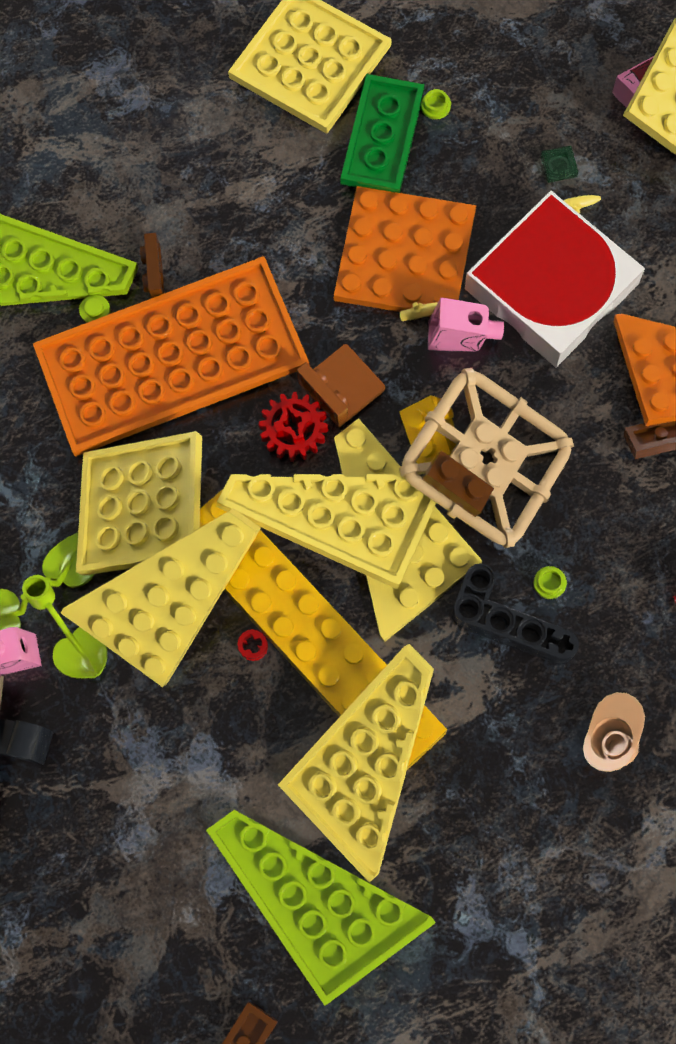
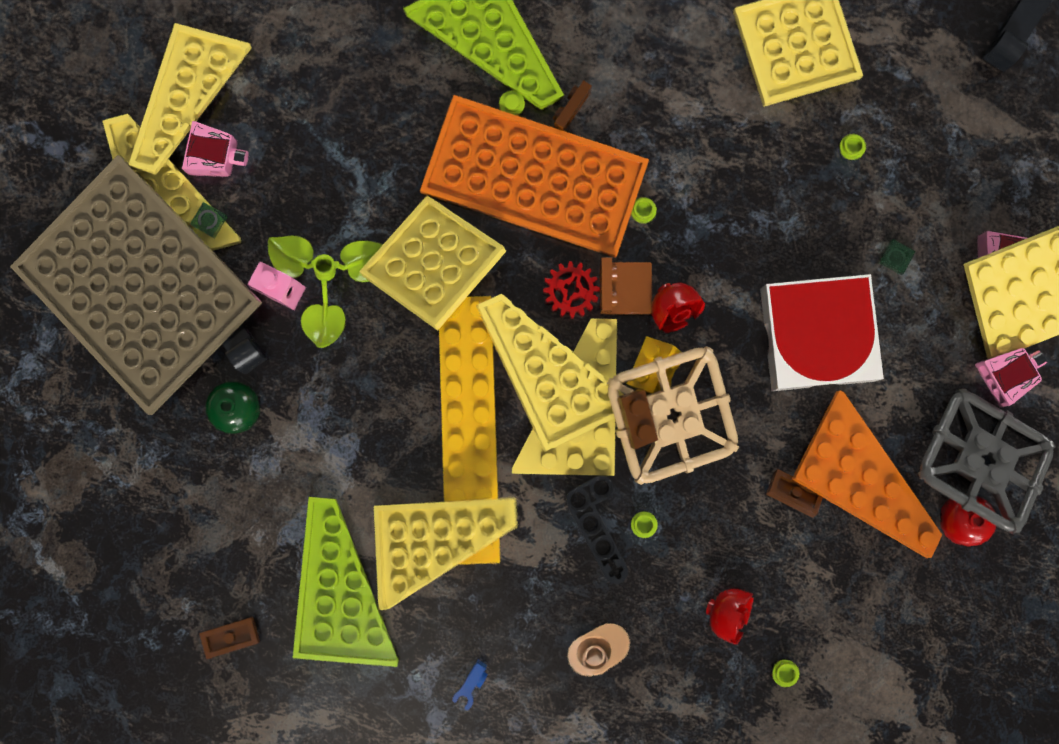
camera: 30 degrees right, 10 degrees up
(56, 808) = (232, 407): none -> dark green cylinder
(163, 602) = (397, 338): light yellow wing -> none
(247, 654) = (422, 411): red bush -> none
(298, 304) = (643, 210): none -> lime plate
(382, 133) = (799, 138): green plate -> none
(402, 359) = (674, 305): none -> red cylinder
(403, 250) = (742, 233): orange plate -> none
(417, 311) = (717, 281): light yellow helmet -> none
(461, 326) = (733, 316): bright pink torso -> none
(521, 866) = (475, 678): none -> blue plate
(582, 201) = (883, 293): light yellow helmet -> none

